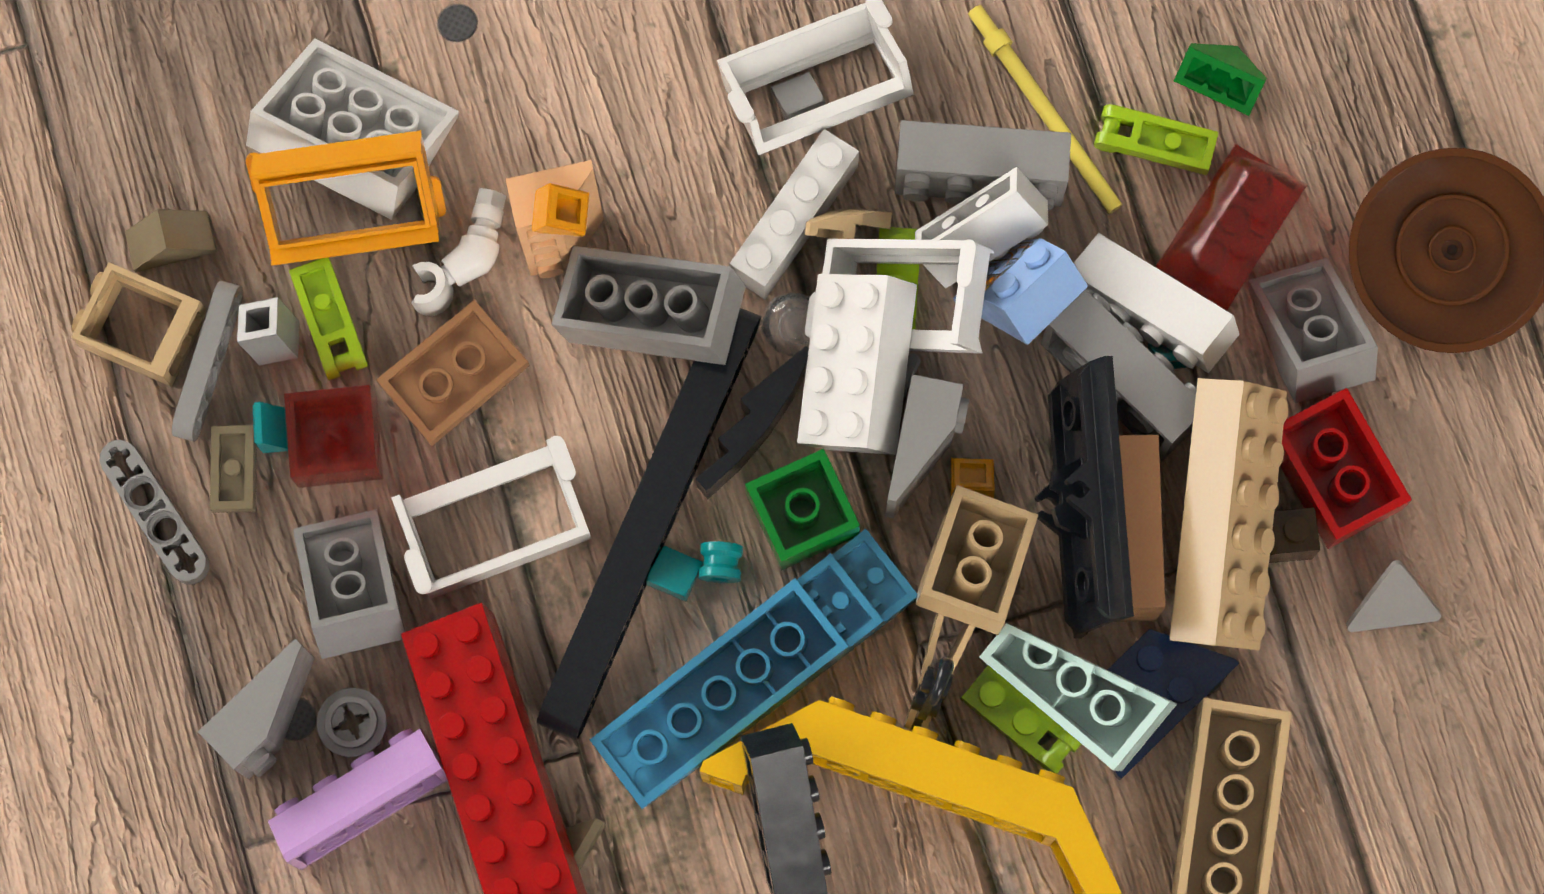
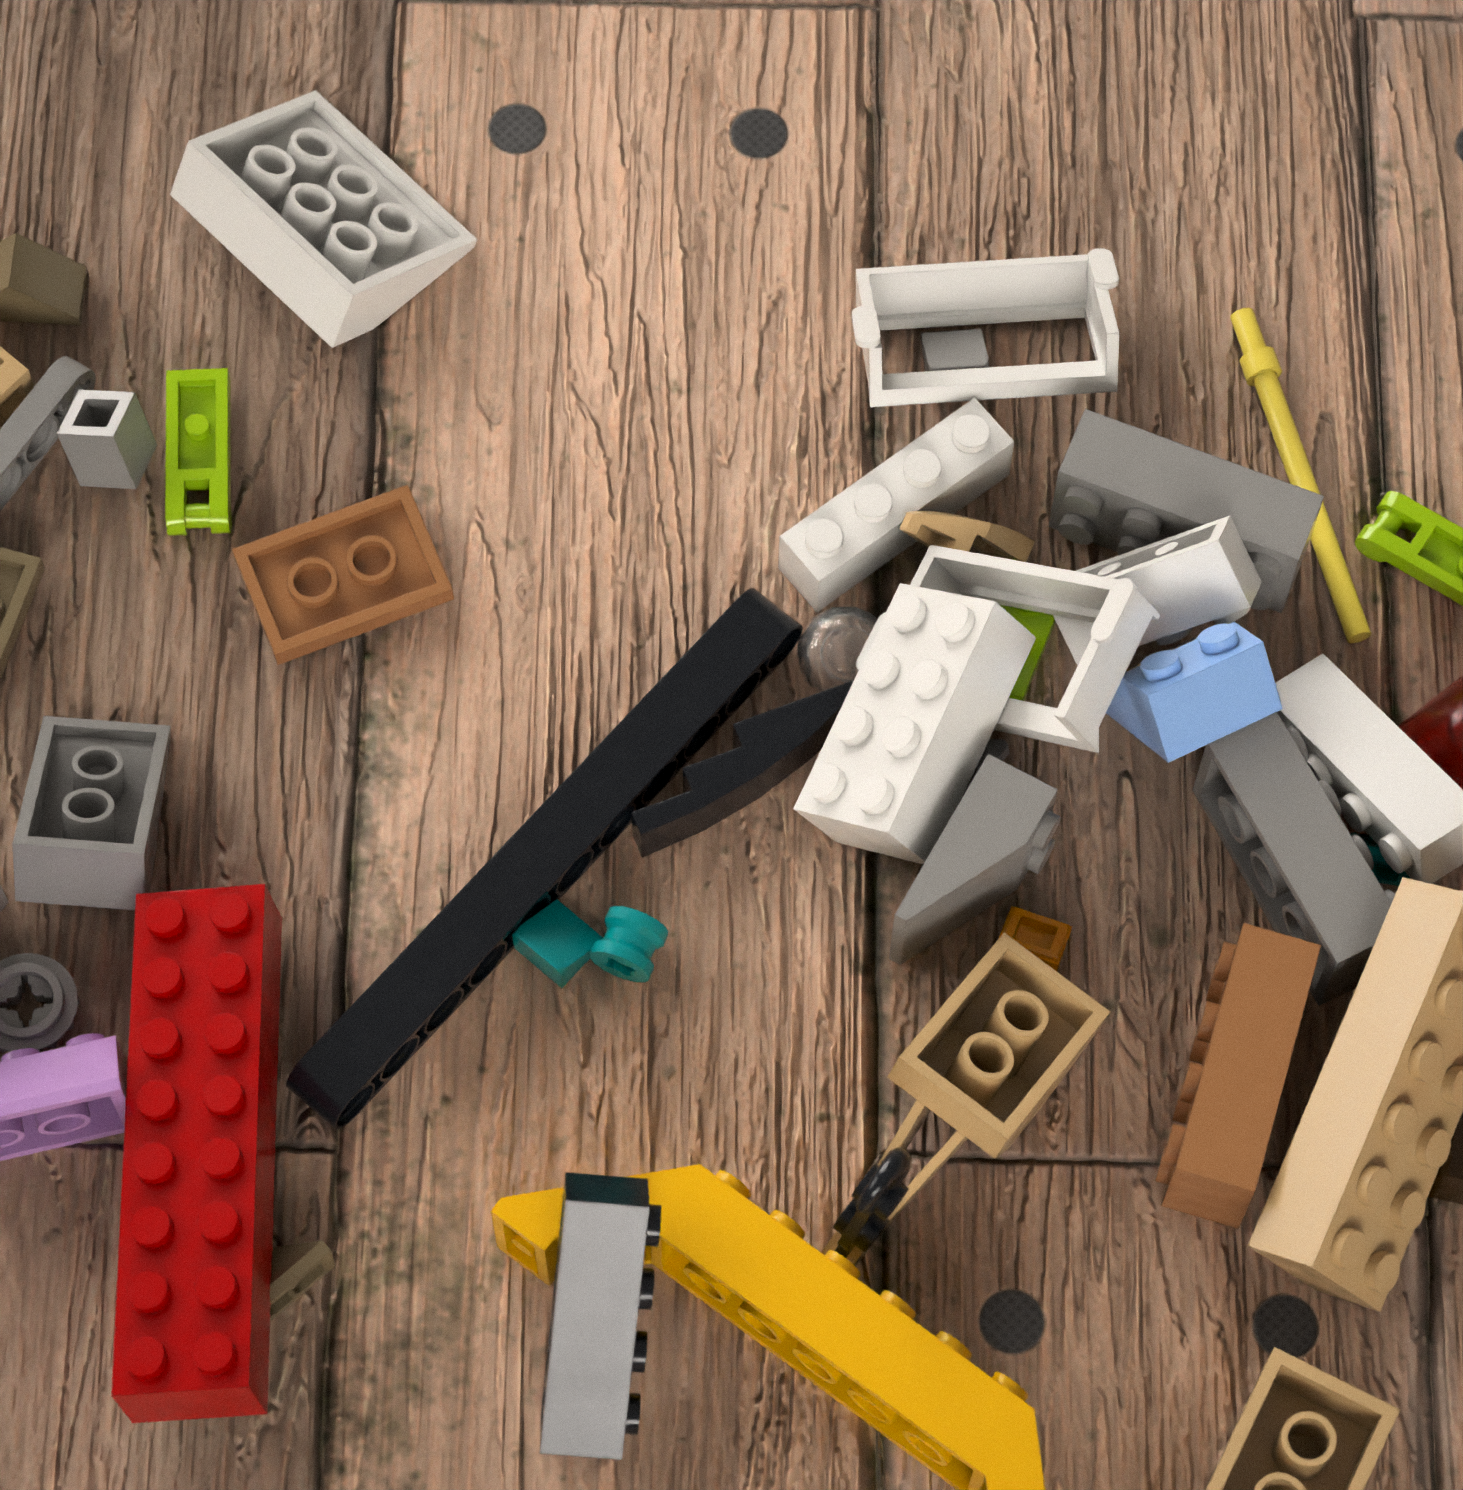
camera: 15 degrees right, 10 degrees down
(270, 427) = (65, 571): teal slope -> none
(333, 436) = (144, 604): clear red brick -> none
(341, 160) = (287, 233): light orange piece -> none
(468, 260) = (414, 434): white piece -> none
(551, 252) = (555, 390): light nougat slope -> none
(553, 455) = (199, 798): white piece -> none
(560, 210) = (557, 360): light orange slope -> none
(649, 304) = (647, 556): light grey brick -> none
(754, 668) = (629, 1103): dark azure slope -> none
(802, 509) = (770, 904): green brick -> none
(1019, 719) = (991, 1301): lime plate -> none
(1086, 700) = (1103, 1303): light aqua wedge -> none
(1088, 498) = (1189, 1009): black hinge -> none
(1173, 671) = (1200, 1329): dark blue wing -> none

